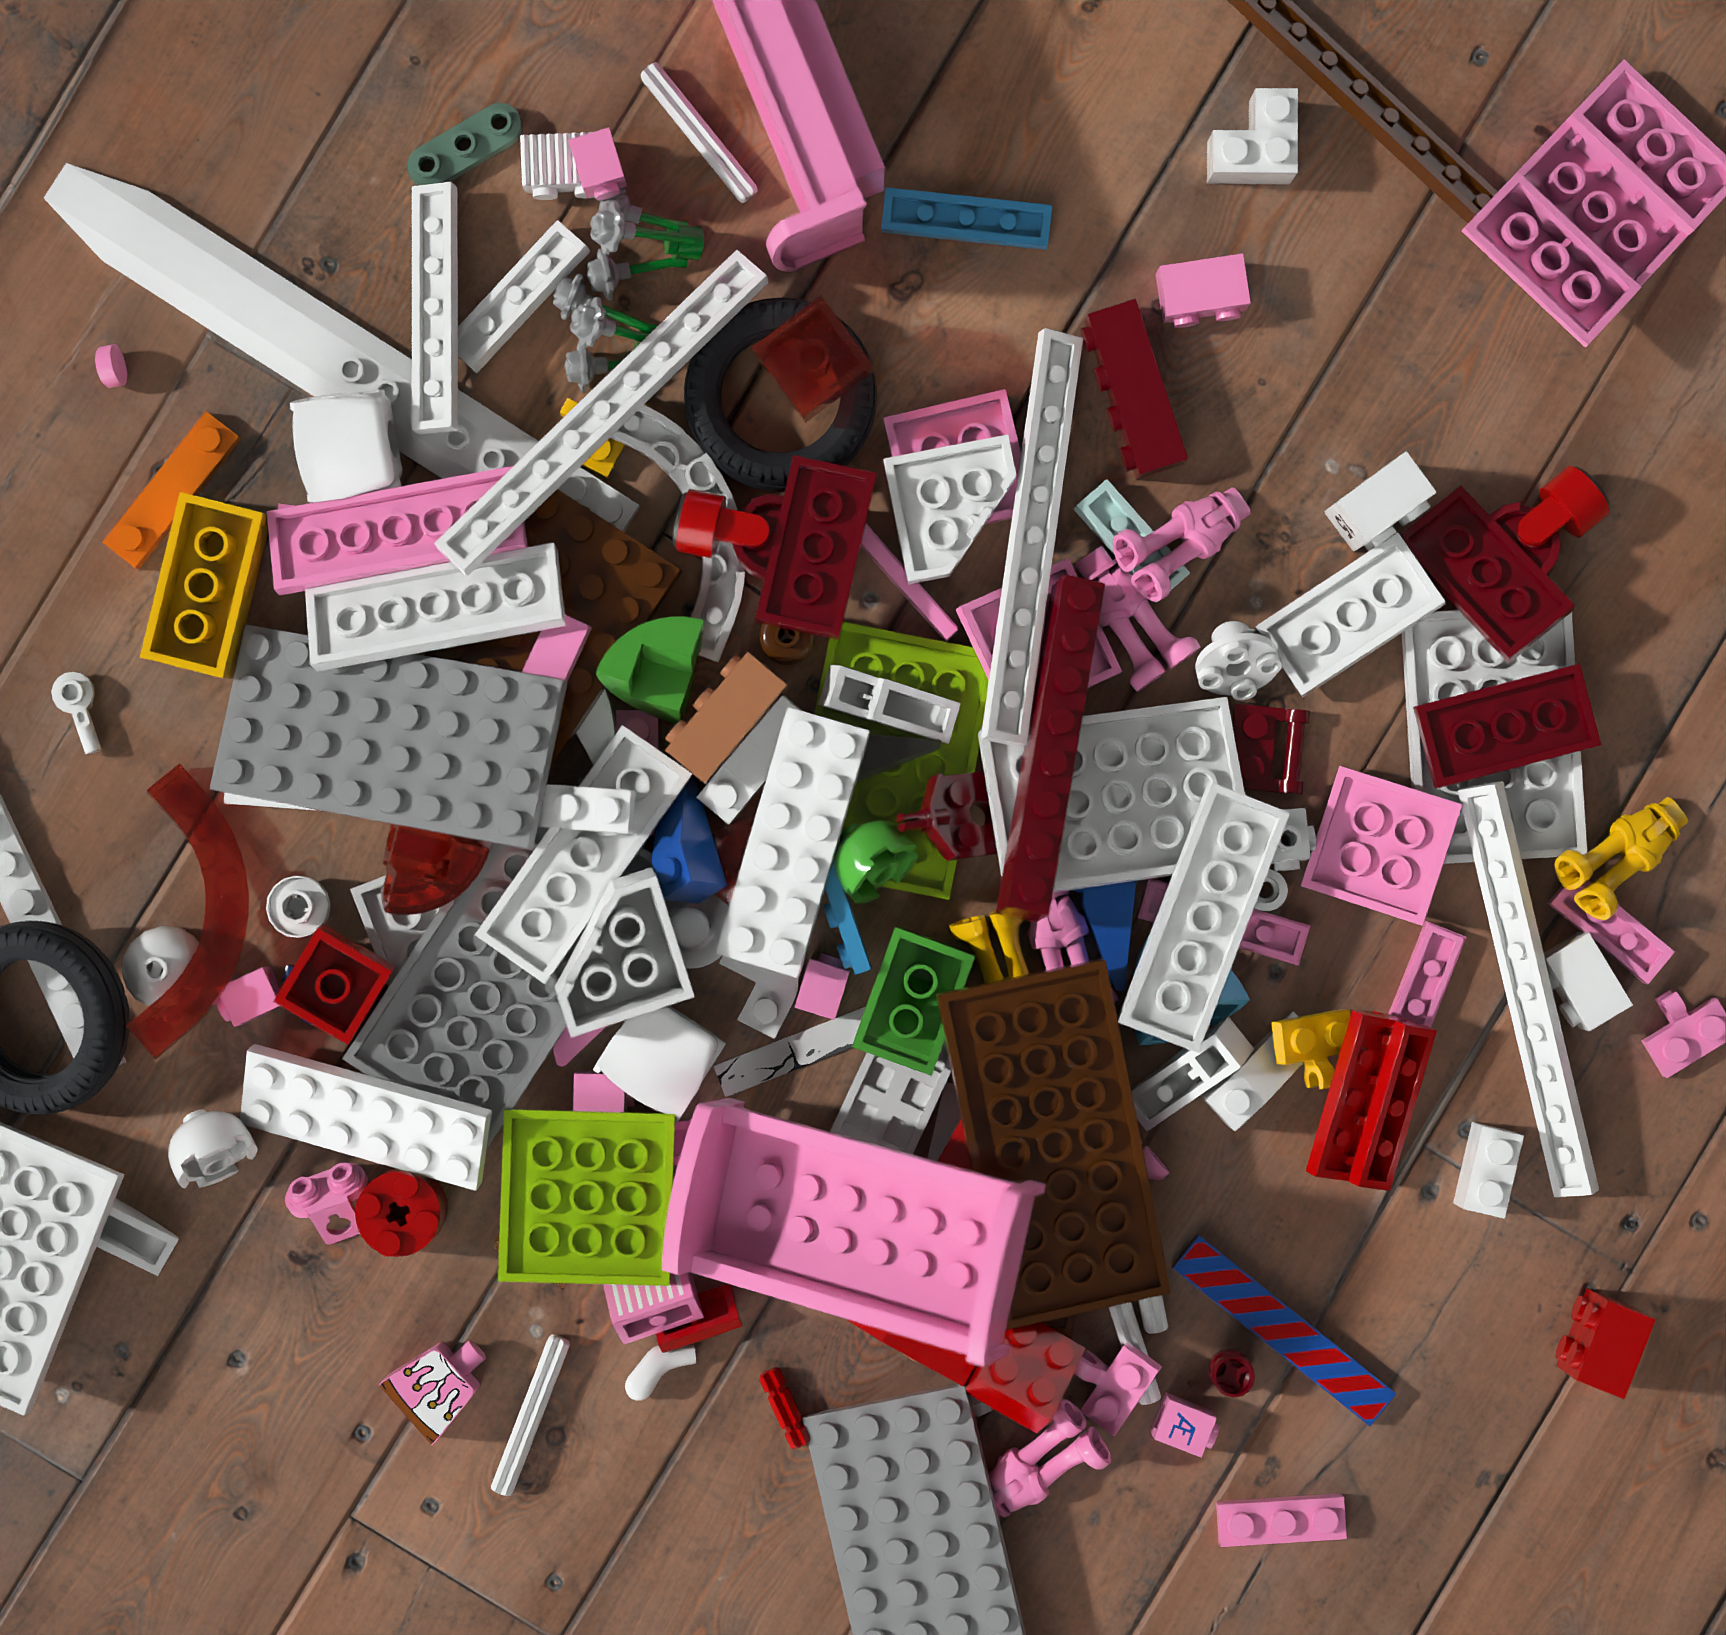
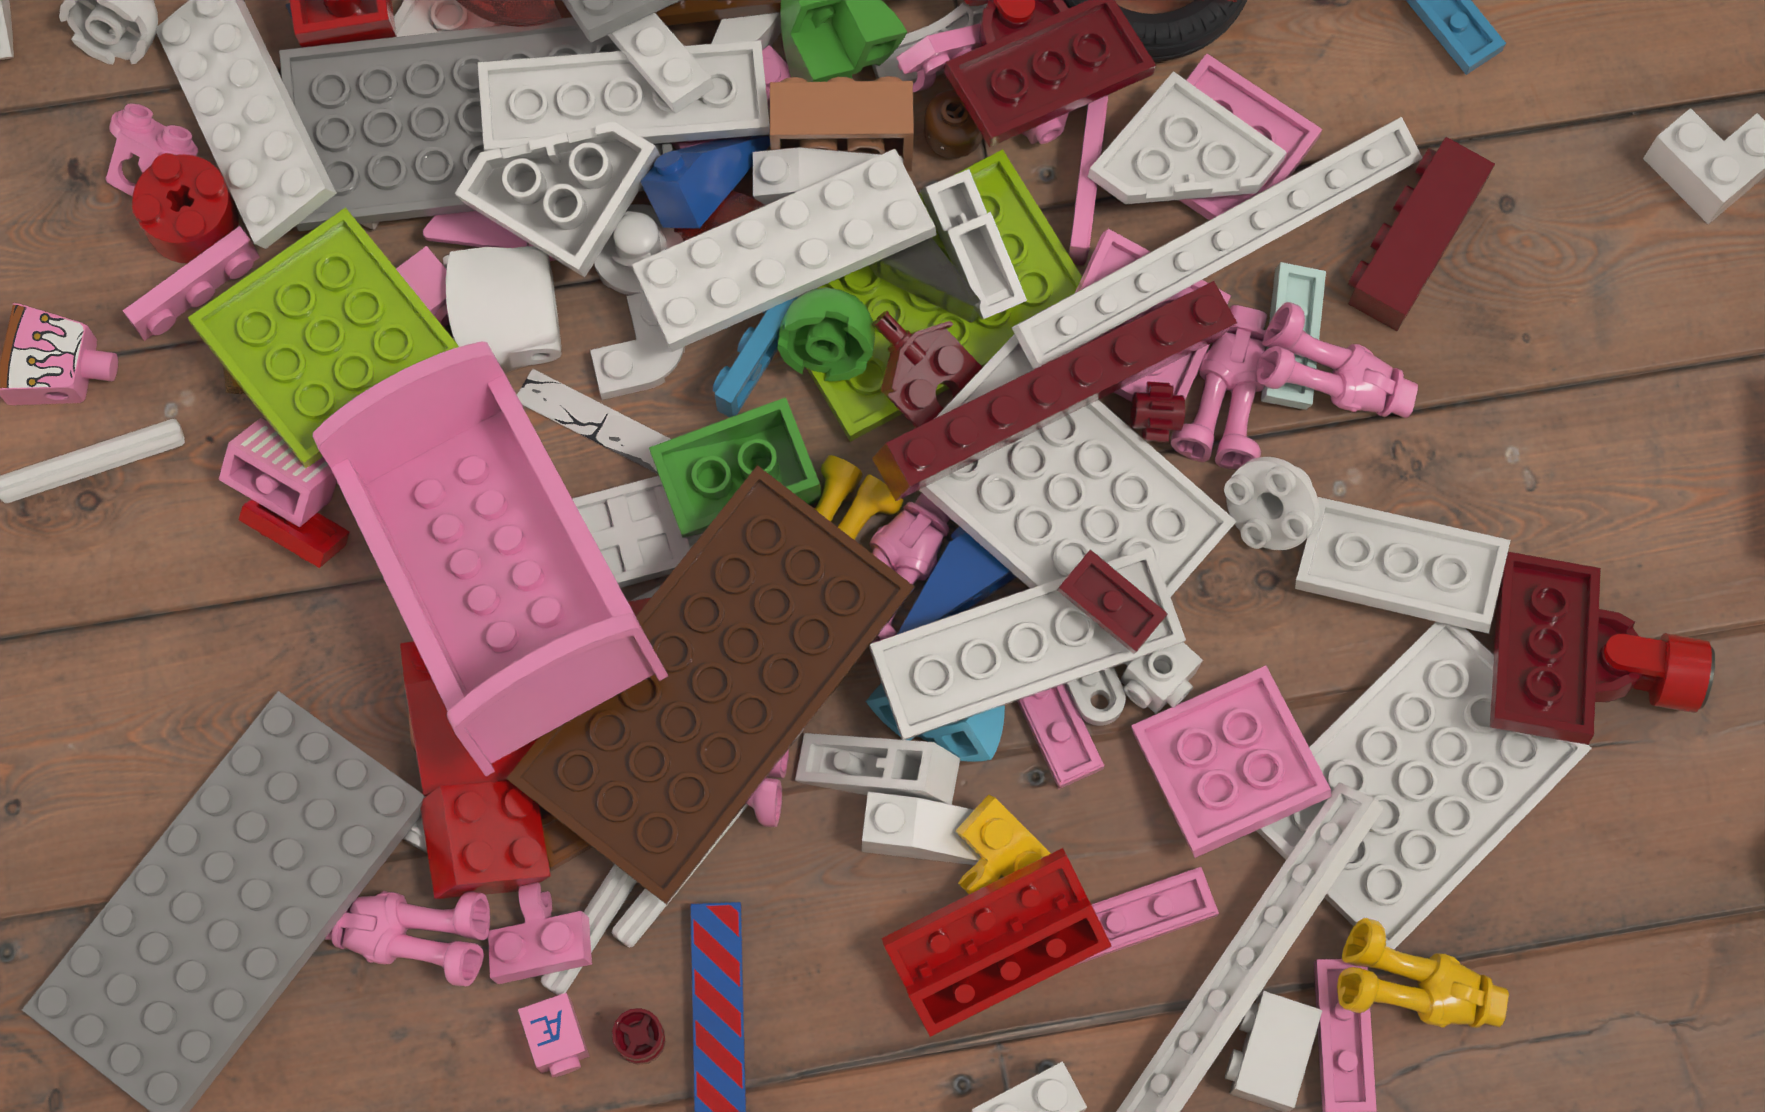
camera: 50 degrees right, 15 degrees down
(462, 1251) = (192, 284): none -> bright pink plate
(653, 1366) = (220, 527): white arm -> none
(737, 618) = (934, 51): none -> bright pink plate
(784, 1407) = (275, 669): red axle -> none
(822, 986) = (680, 394): bright pink brick -> none
(1114, 686) = (1157, 411): none -> dark red gear
(1203, 290) = (1555, 218): bright pink brick -> none
(1230, 844) = (1112, 601): none -> dark red plate
(1254, 740) = (1215, 587): dark red plate -> none
(1389, 496) = (1523, 502): white brick -> none
(1507, 726) = (1435, 777): dark red plate -> none

